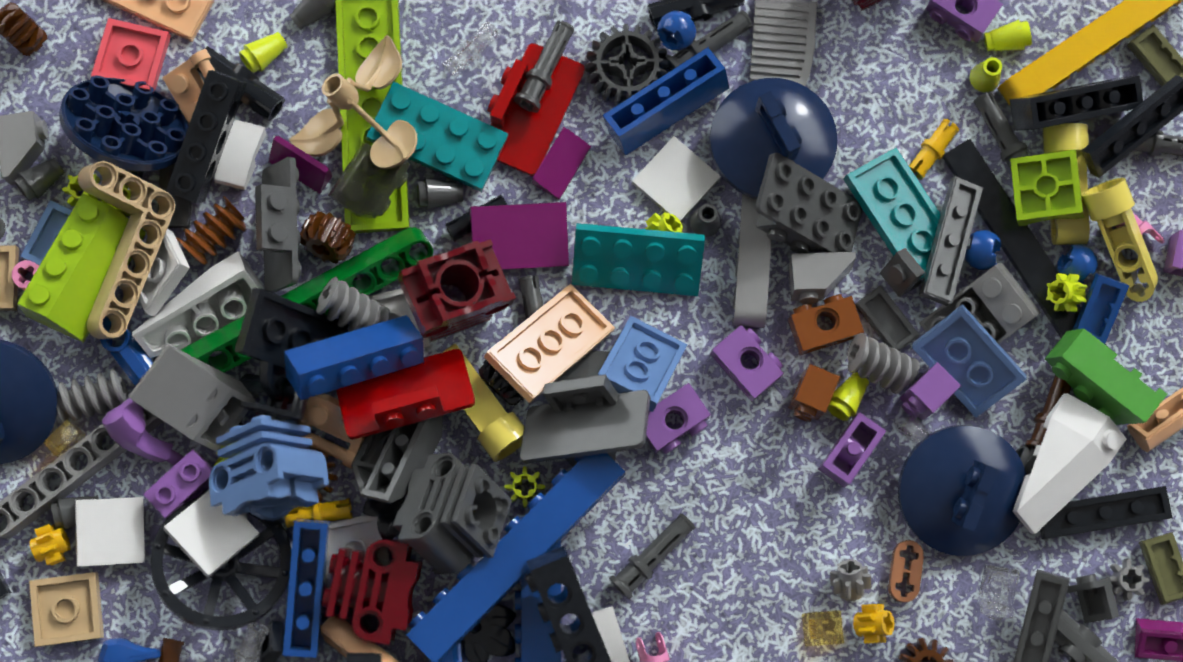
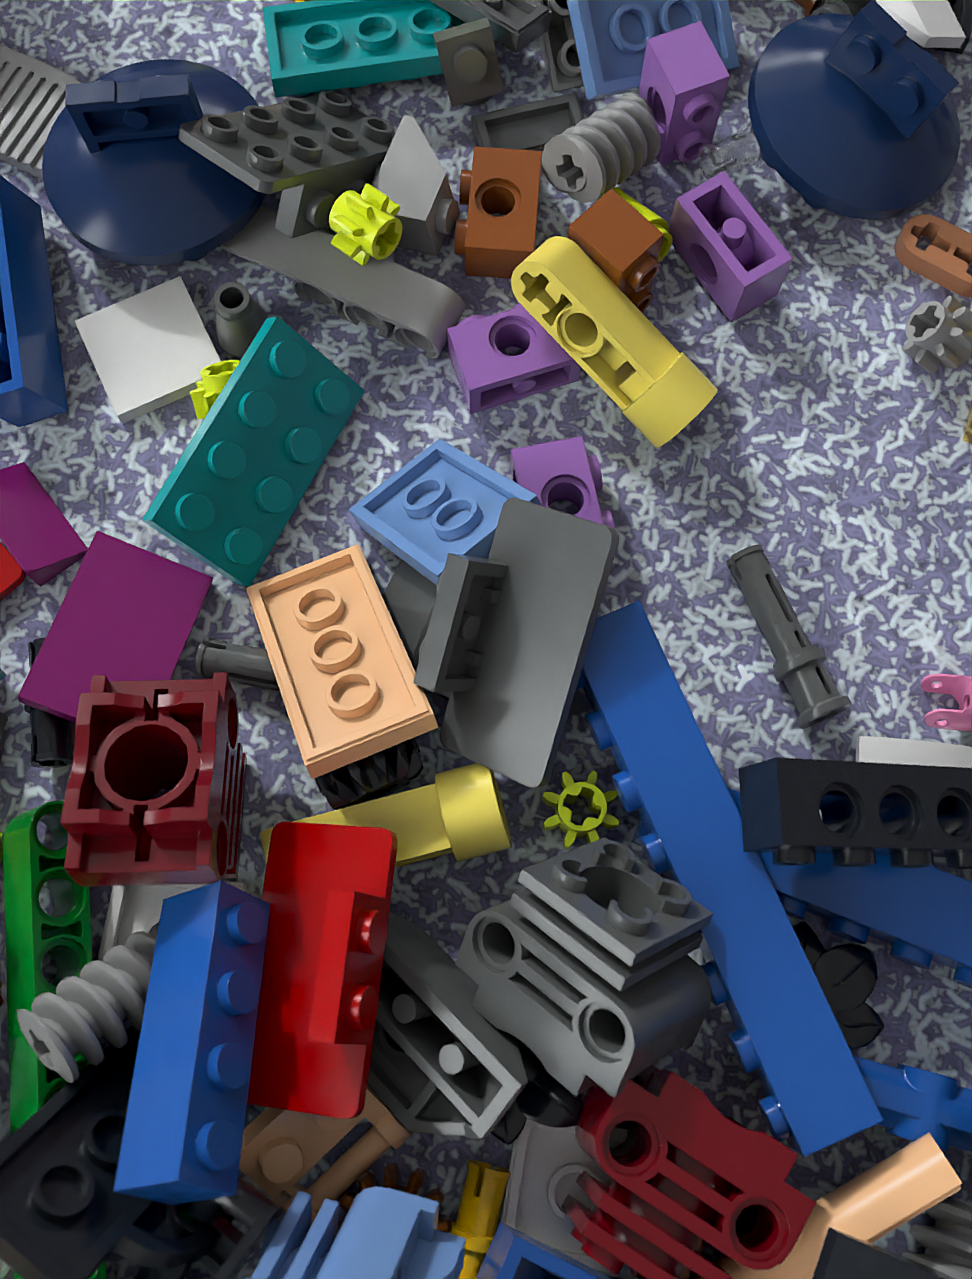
camera: 65 degrees left, 5 degrees down
(766, 410) = (611, 339): none -> light yellow beam
(776, 261) = (365, 224): none -> neon yellow gear

